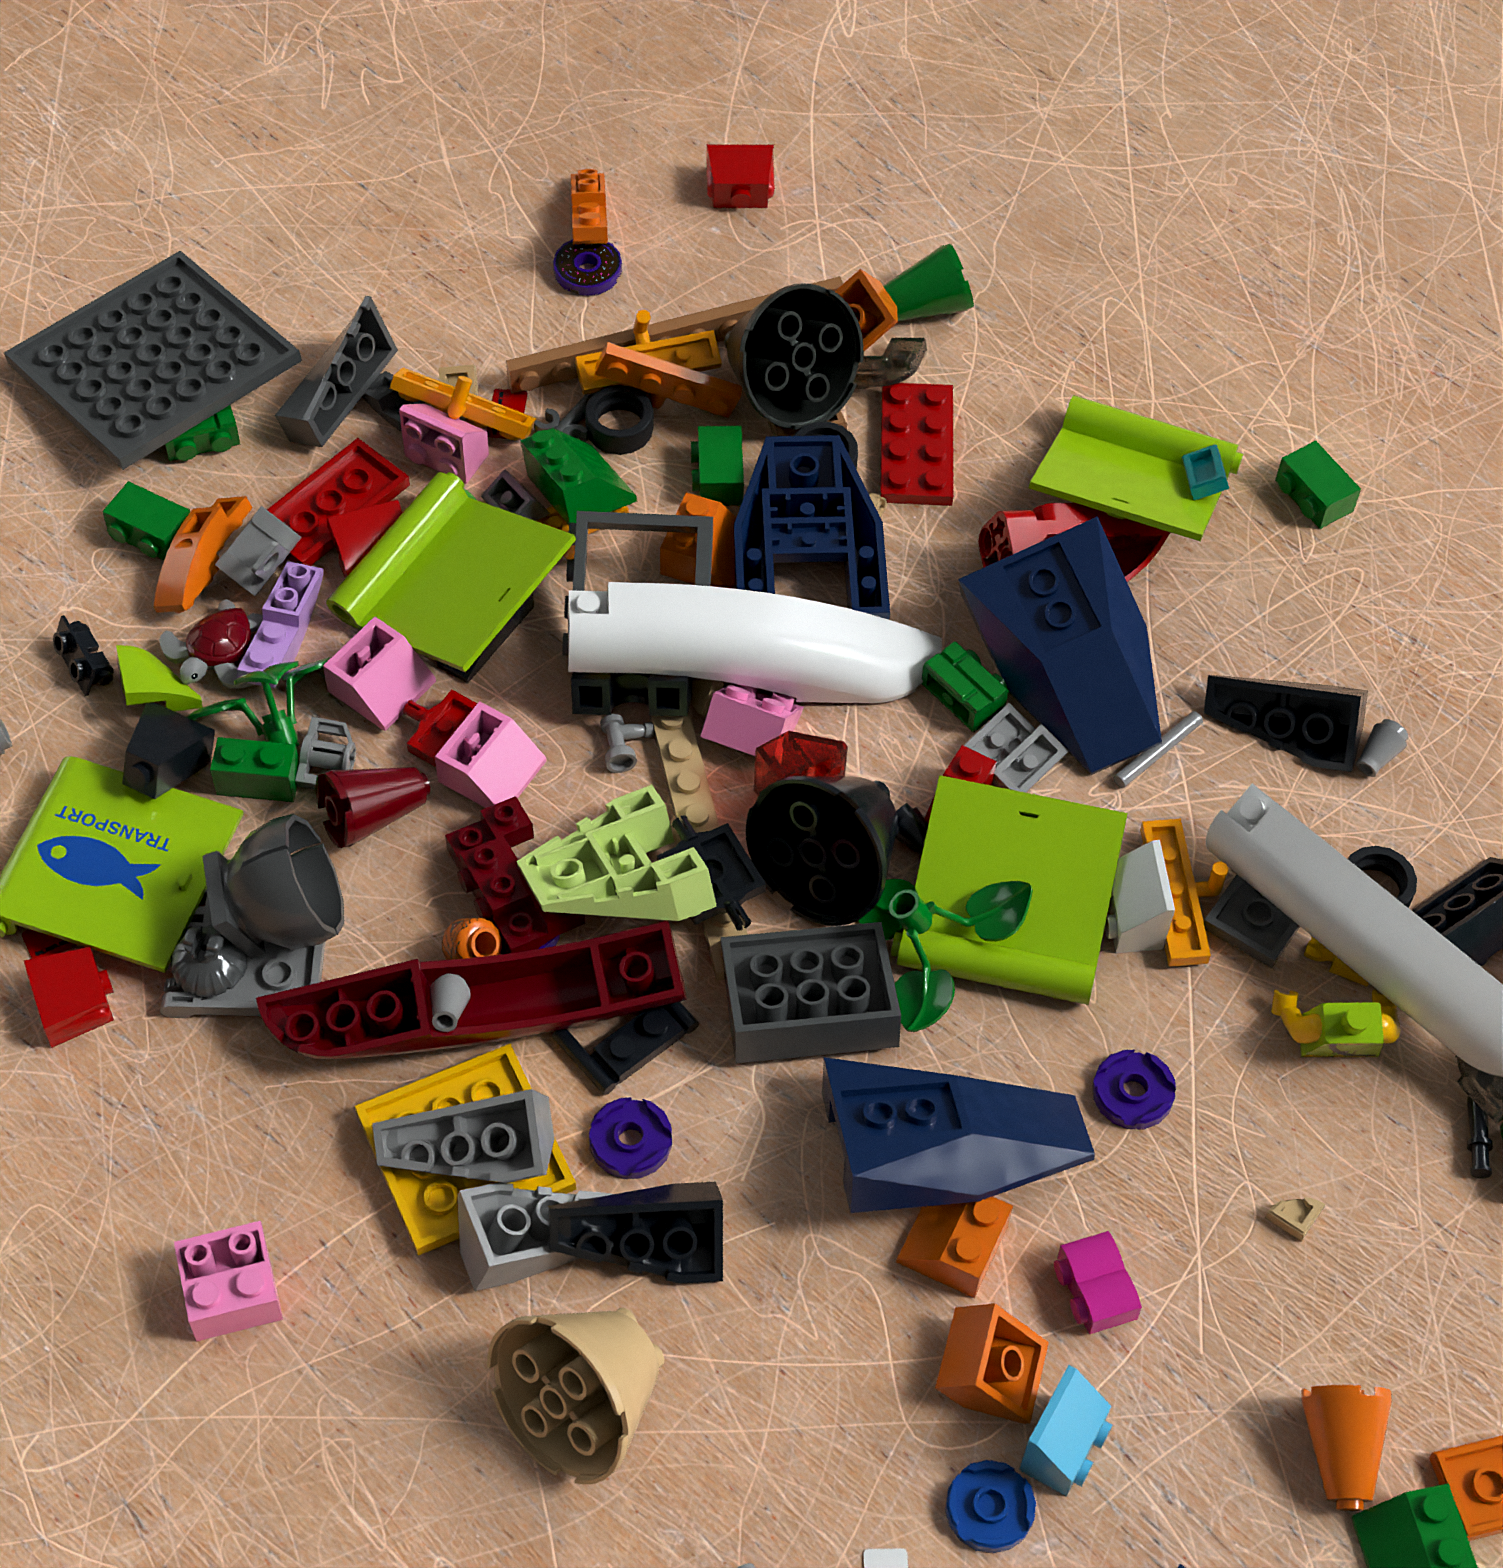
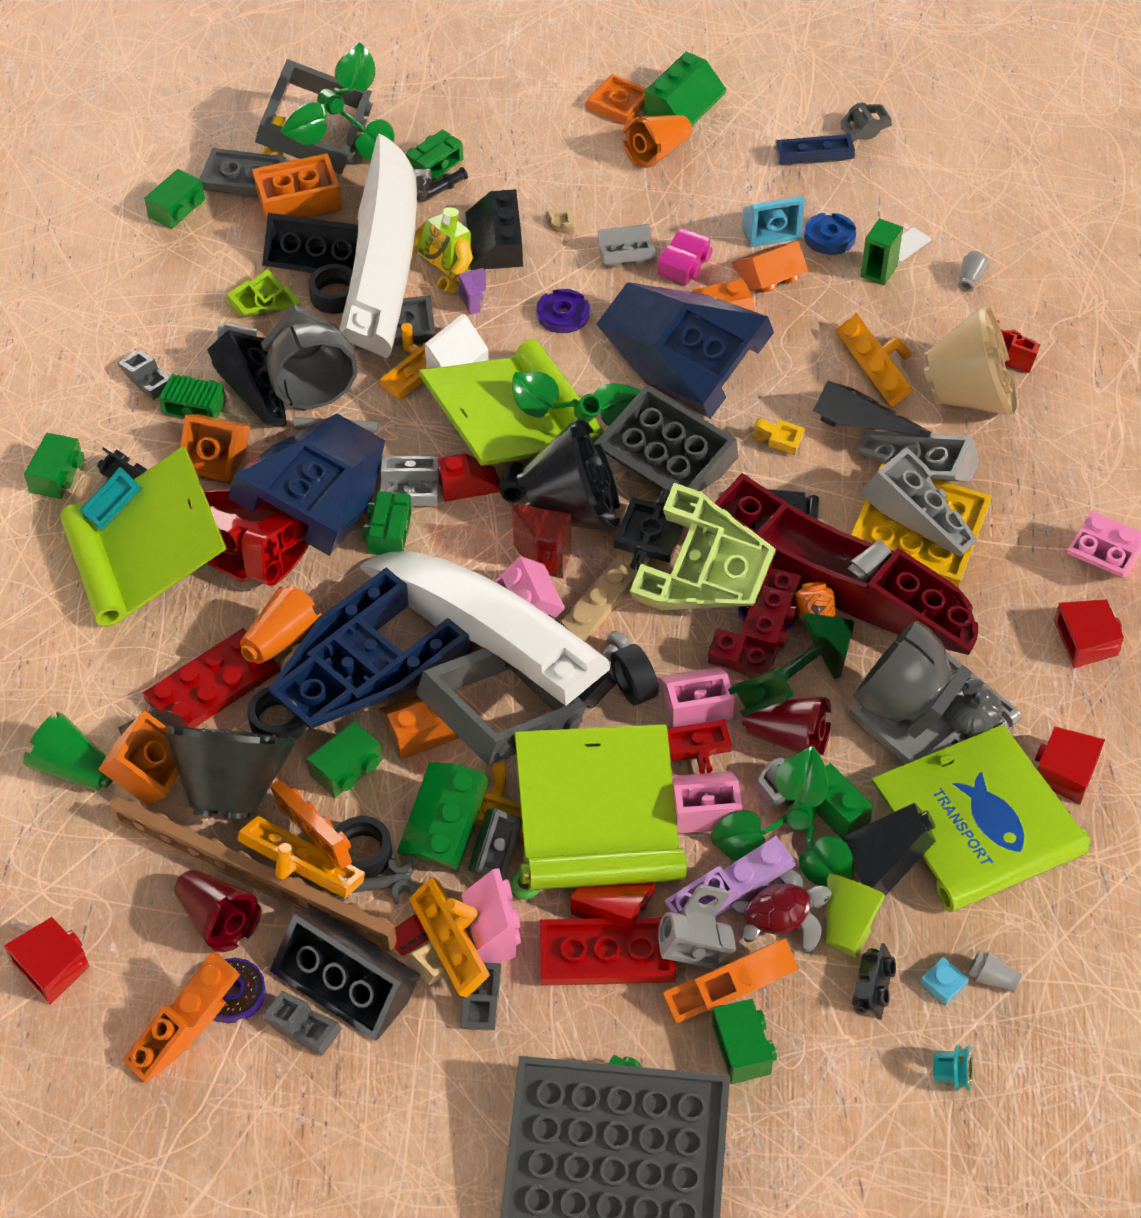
camera: 130 degrees left, 5 degrees down
(23, 708) = (944, 981): none -> medium azure plate
(167, 1166) = (1089, 631): none -> red torso
(338, 378) = (508, 1034): dark grey wedge -> none
(425, 916) = (830, 640): none -> dark green piece
(515, 285) = (302, 1024): none -> dark grey slope
(515, 332) = (343, 972): none -> black slope
(565, 707) = (634, 674): none -> black tyre
(603, 1517) = (1020, 349): none -> red slope
(630, 1160) = (827, 484): dark purple tile -> none
(668, 285) = (218, 909): none -> dark red cone
(719, 1132) = (781, 436): none -> yellow plate
(728, 1336) = (876, 358): none -> light orange plate
(878, 1494) = (881, 251): none -> green piece
(910, 501) = (279, 625): none -> orange cone
(1172, 1230) = (626, 245): none -> light grey bracket
(1223, 620) = (214, 445): none -> orange slope
(1248, 1007) = (471, 287): none -> medium lavender bracket
(1257, 539) = (115, 460): none -> black hinge
(1257, 744) = (308, 360): none -> dark grey plate
(1310, 646) = (191, 396): none -> green brick
(1328, 1119) = (495, 231): none -> black slope
(1396, 643) = (144, 373): none -> dark grey slope
(1429, 816) = (261, 296): none -> lime slope

